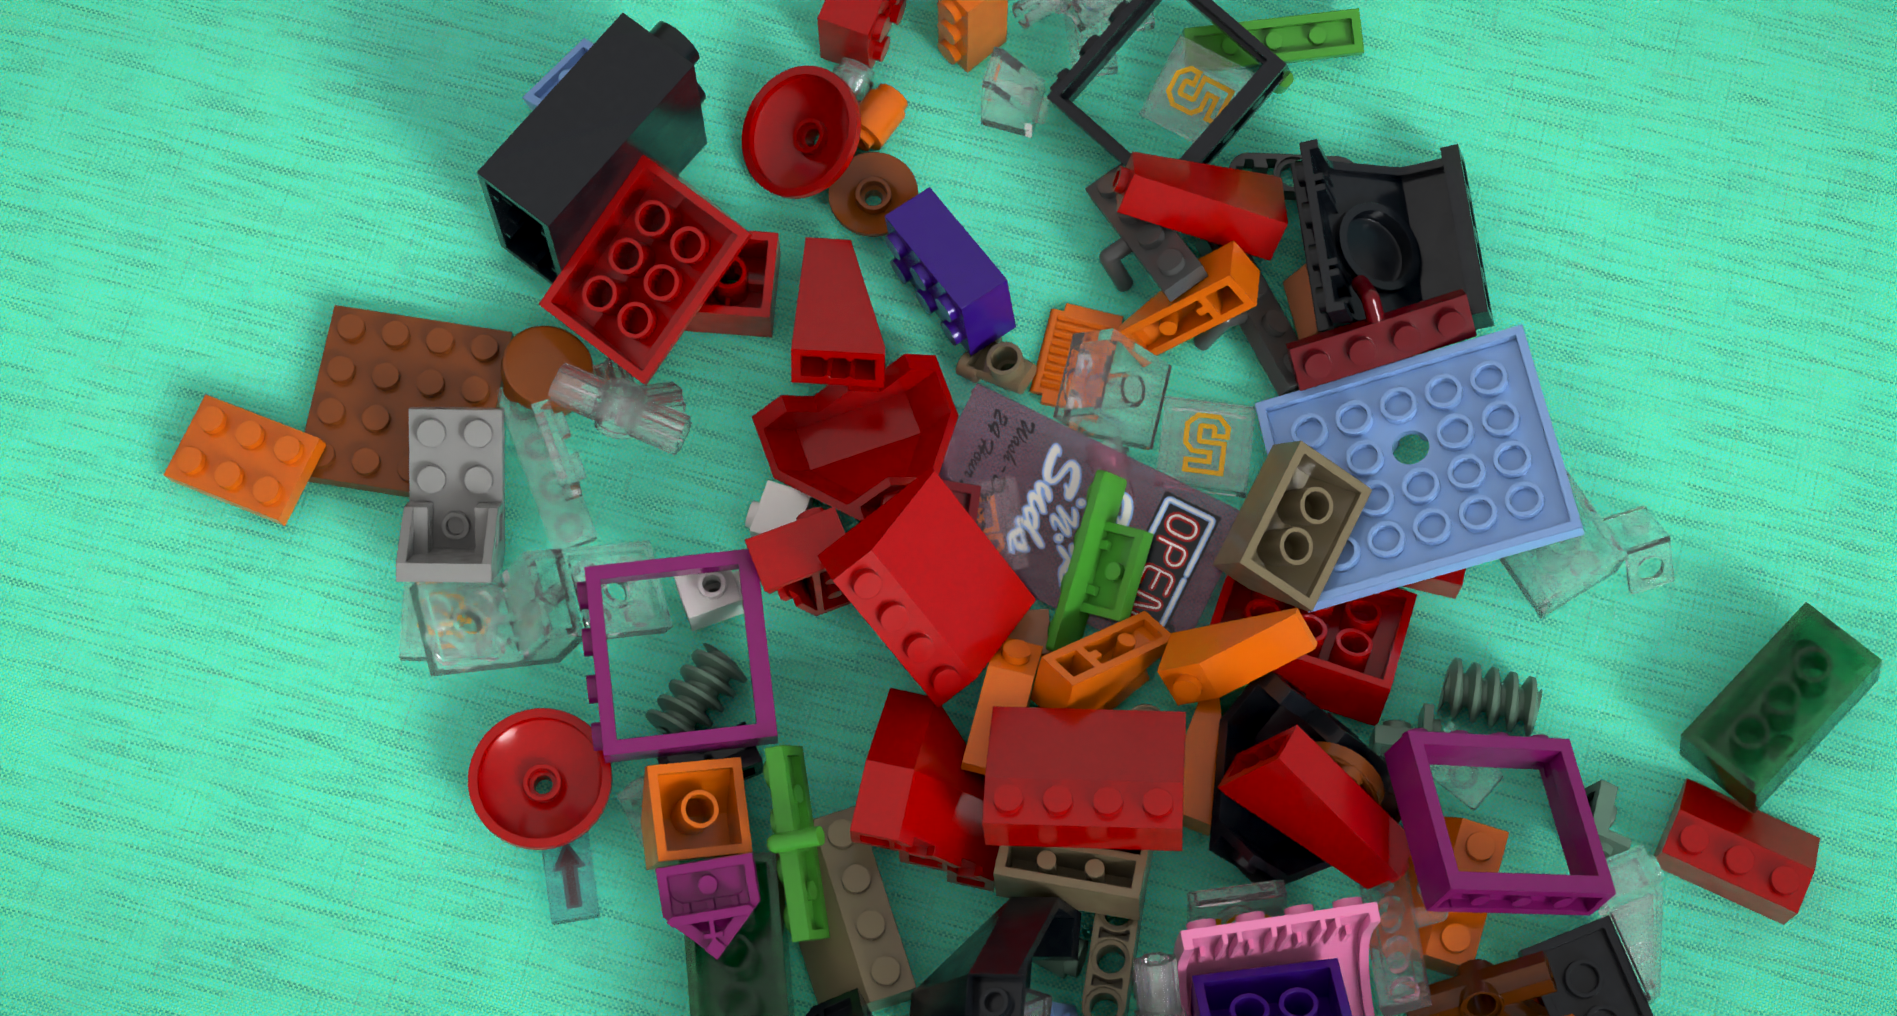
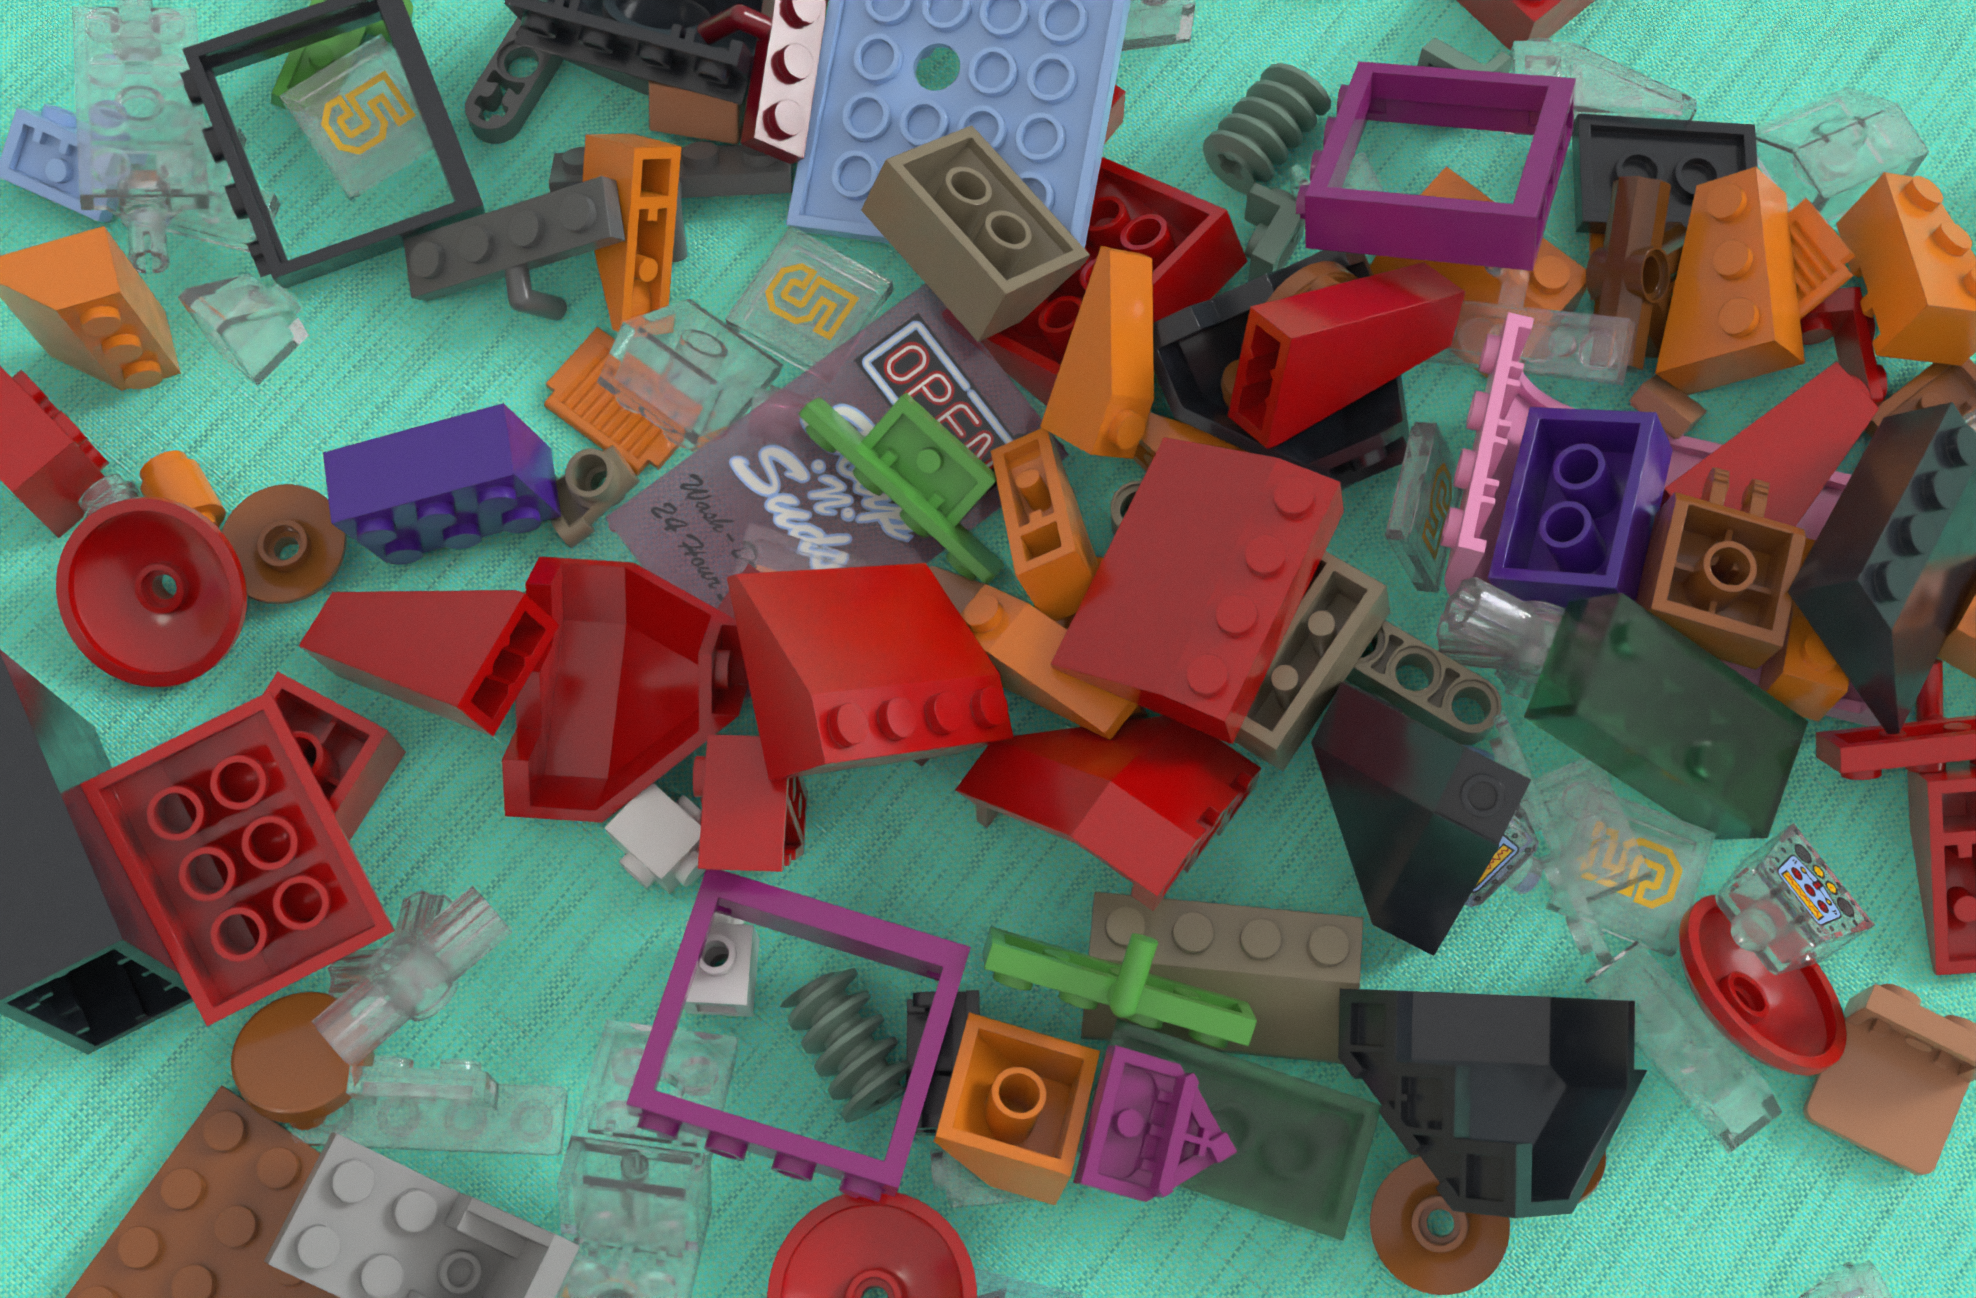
camera: 65 degrees left, 0 degrees up
(1204, 201) = (514, 151): red slope -> none

